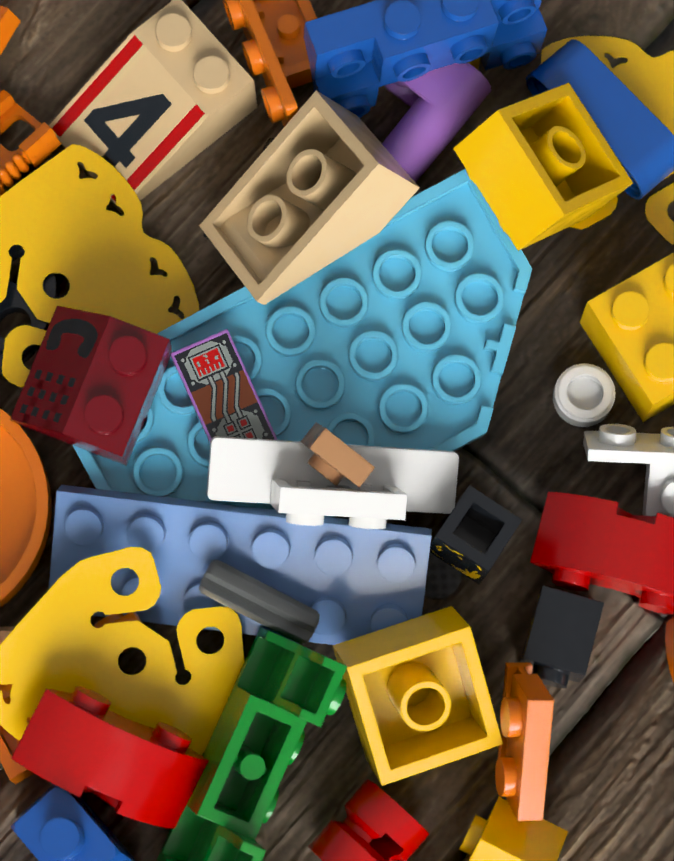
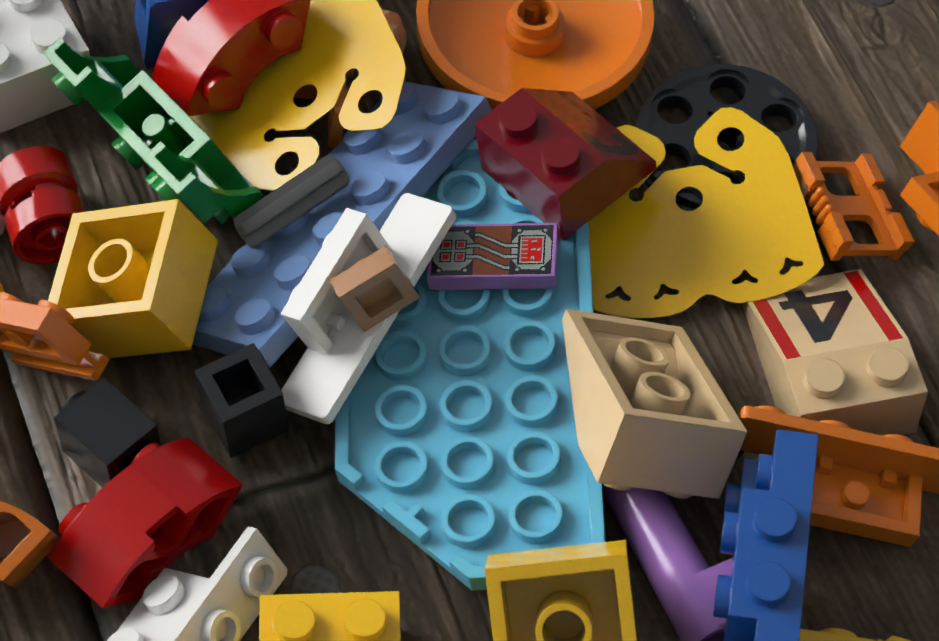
camera: 115 degrees right, 20 degrees down
(584, 395) = (322, 574): white tile -> none

